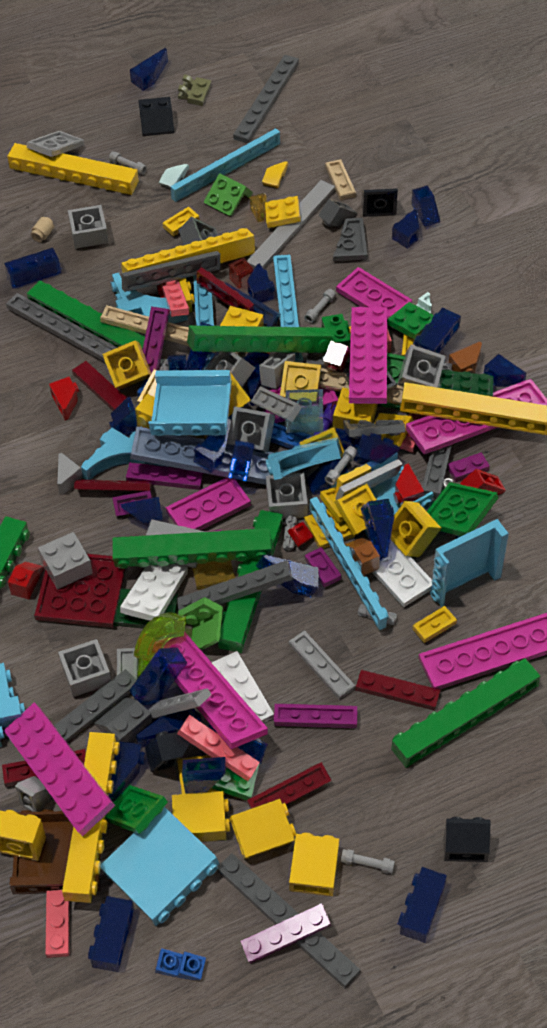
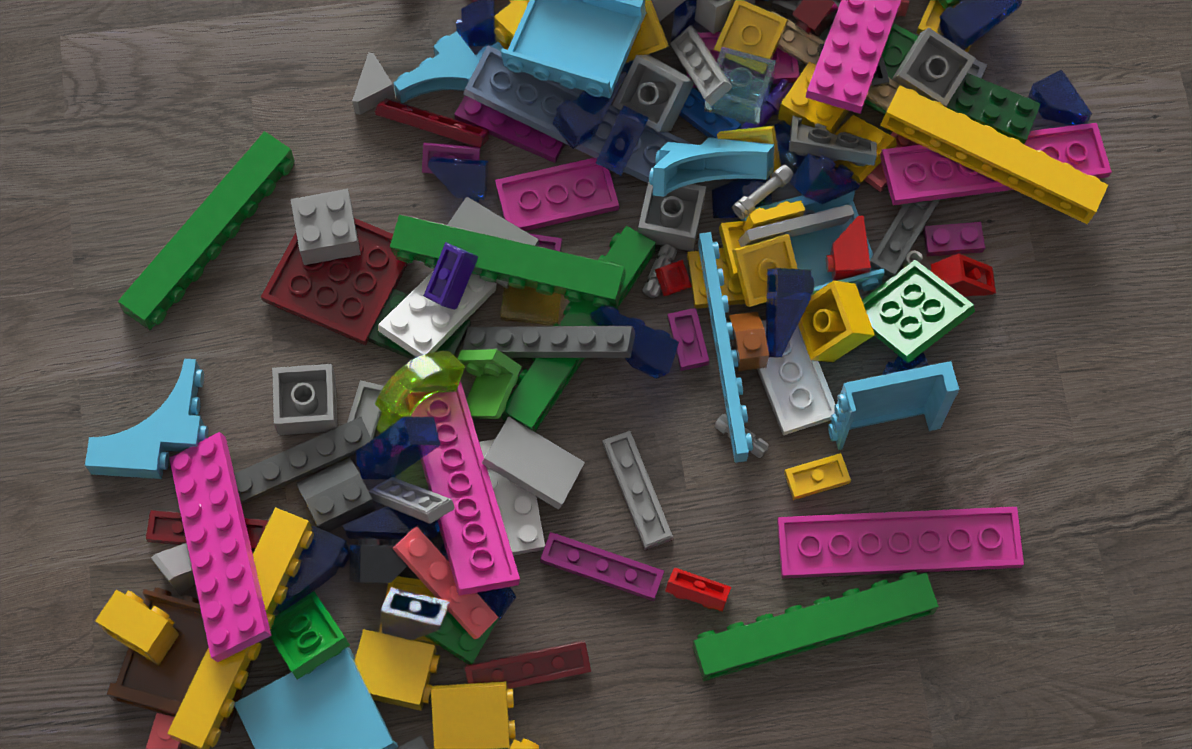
camera: 15 degrees right, 15 degrees up
(24, 579) = (265, 234): red slope -> none
(158, 564) = (450, 276): none -> dark purple slope
(249, 664) = (533, 462): none -> light grey tile
(375, 711) = (698, 589): none -> red plate
(397, 690) = (731, 561): dark red plate -> none
(466, 358) = (1011, 64): dark orange slope -> none

